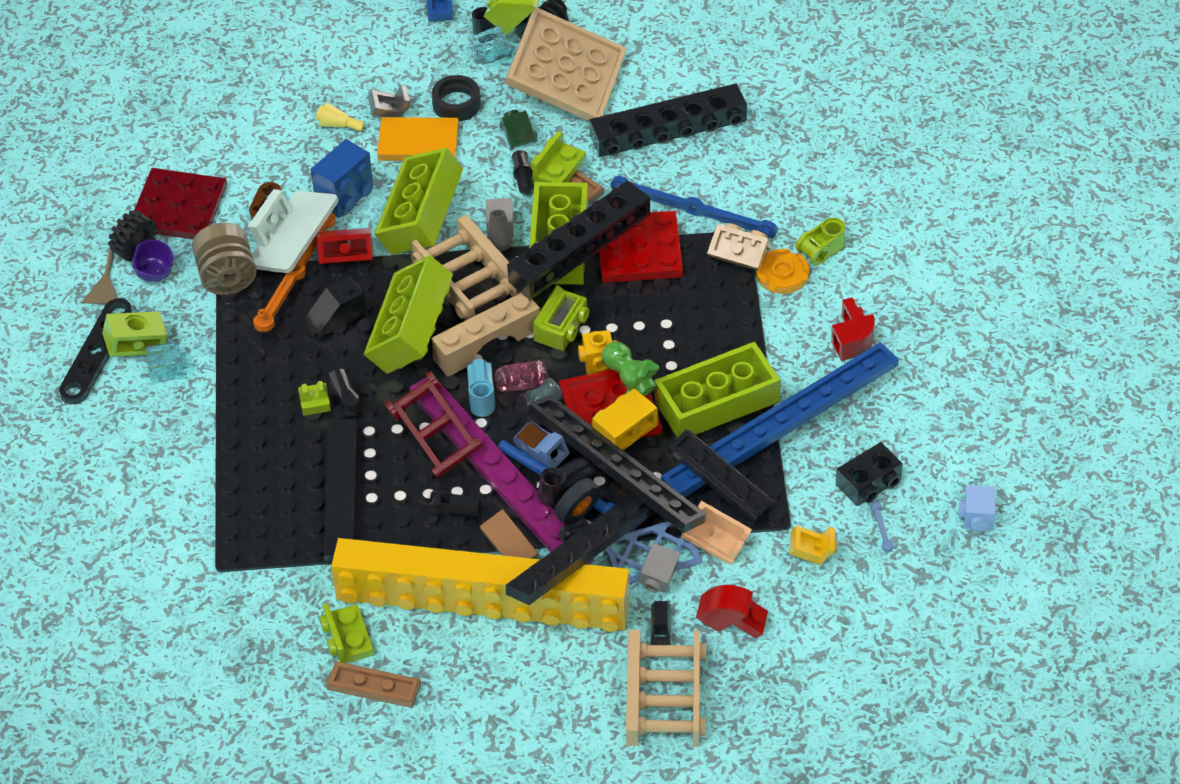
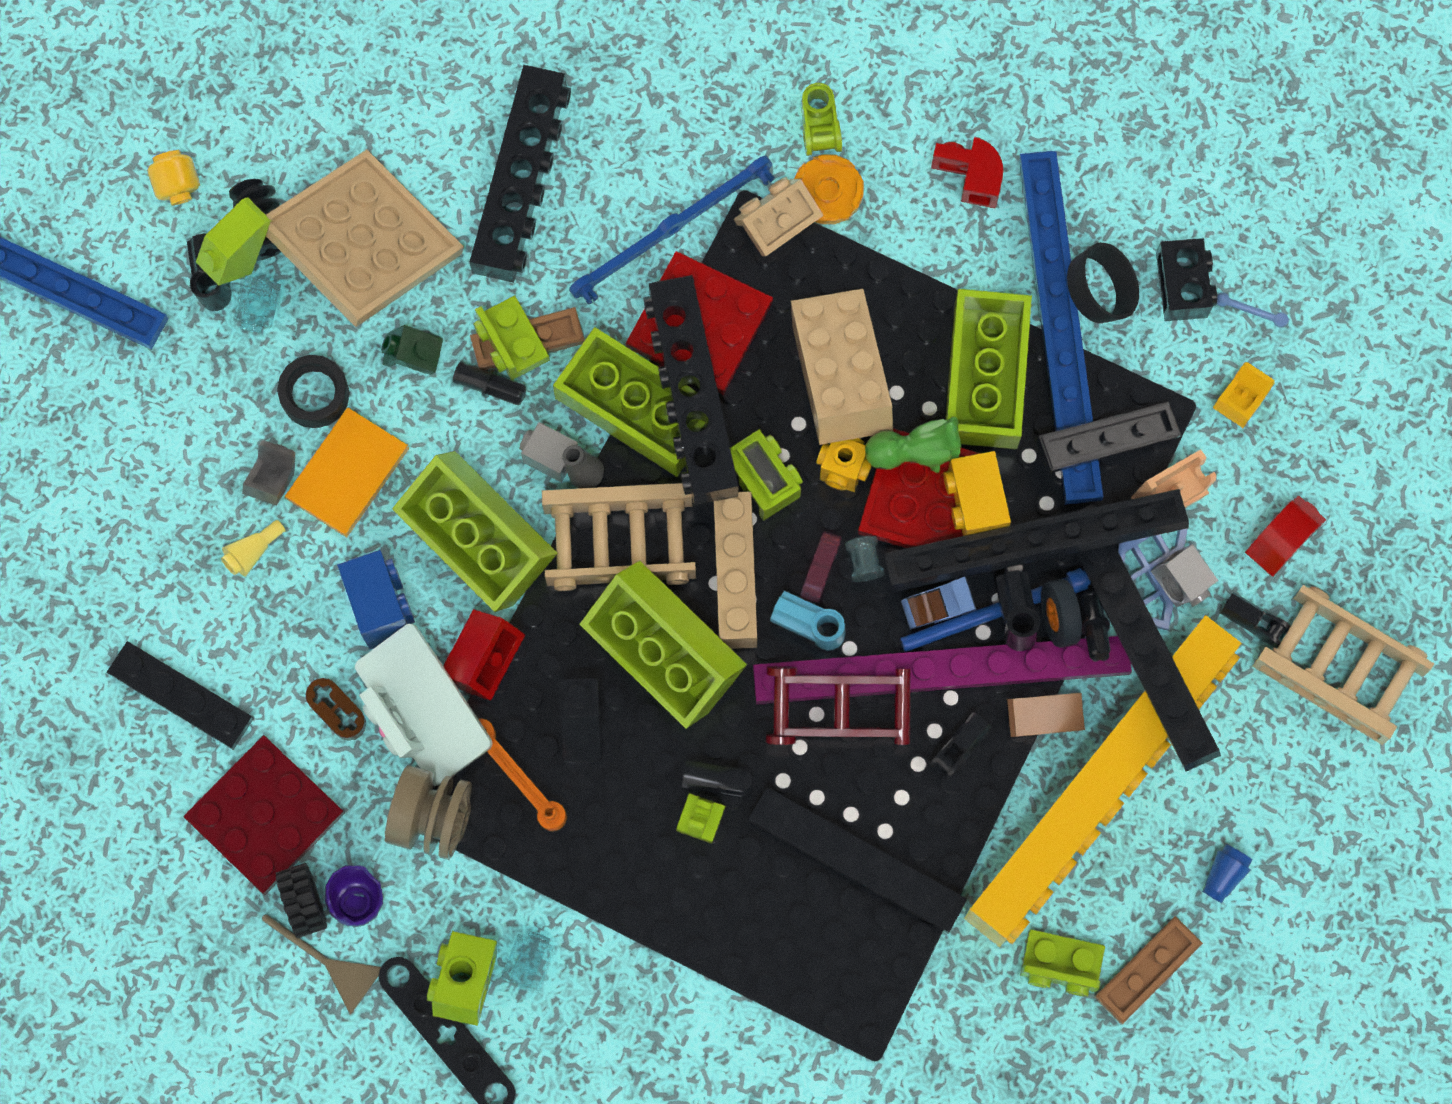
camera: 60 degrees left, 25 degrees up
(225, 134) = (180, 695): none -> black plate
(471, 692) = (1226, 873): none -> blue cone
(657, 312) = (841, 366): none -> tan brick
(850, 421) = (1121, 274): none -> black tyre
(978, 508) = (1298, 198): light blue brick -> none

